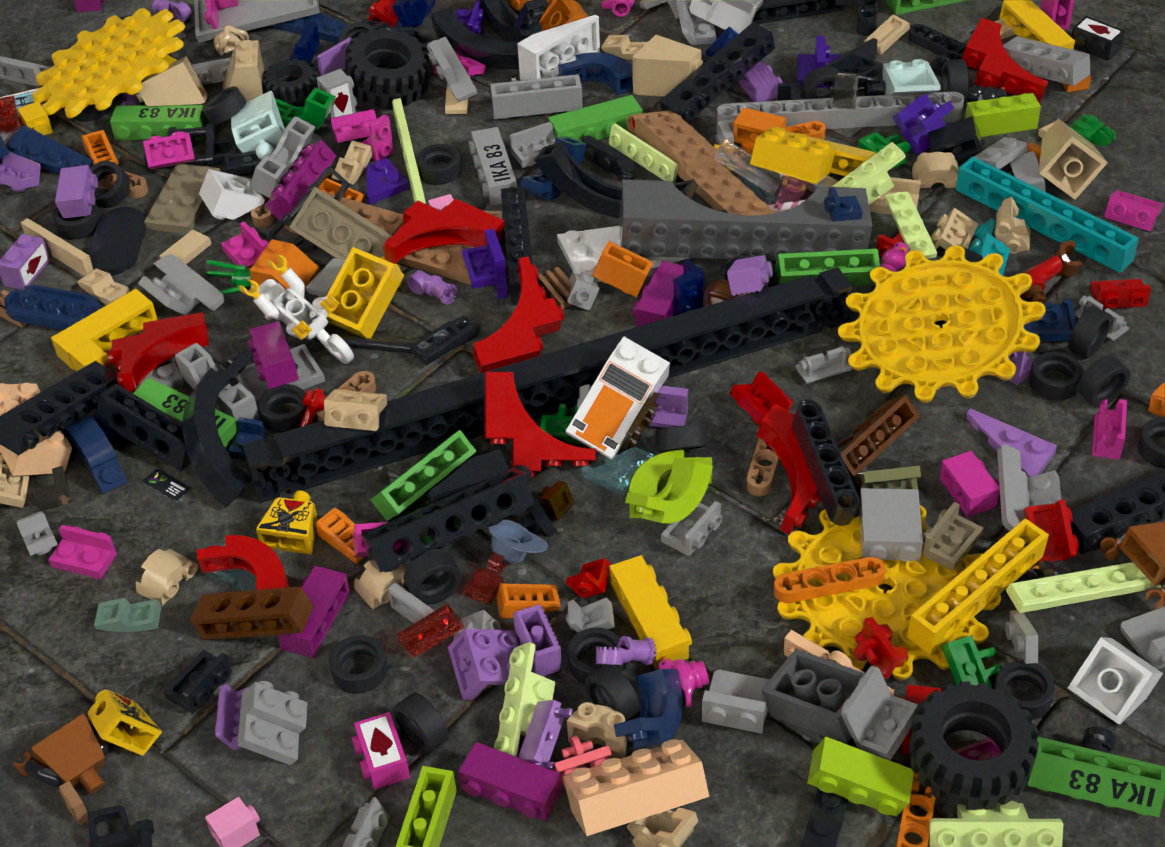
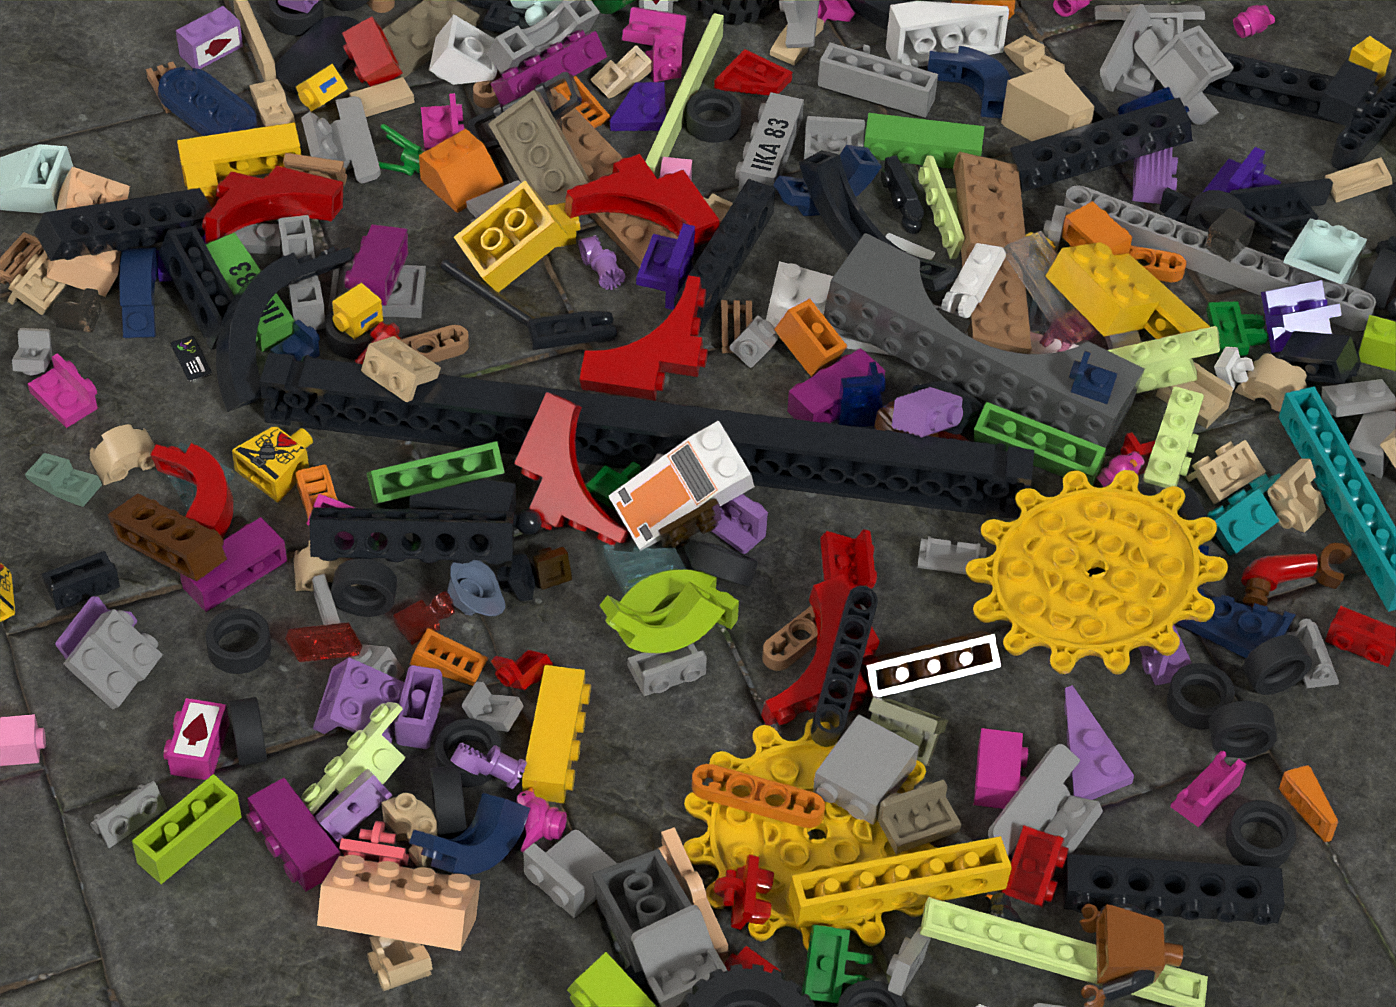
camera: 25 degrees right, 5 degrees up
(137, 259) = (321, 88): none -> yellow brick
(160, 220) = (371, 53): none -> red brick
(172, 310) = (317, 166): none -> medium nougat tile
(284, 390) = (357, 311): none -> yellow brick
(300, 316) = (428, 211): white animal -> none
(447, 128) = (753, 75): none -> red wing
(710, 180) = (974, 279): none -> white hinge
(909, 170) = (1232, 367): none -> white tile

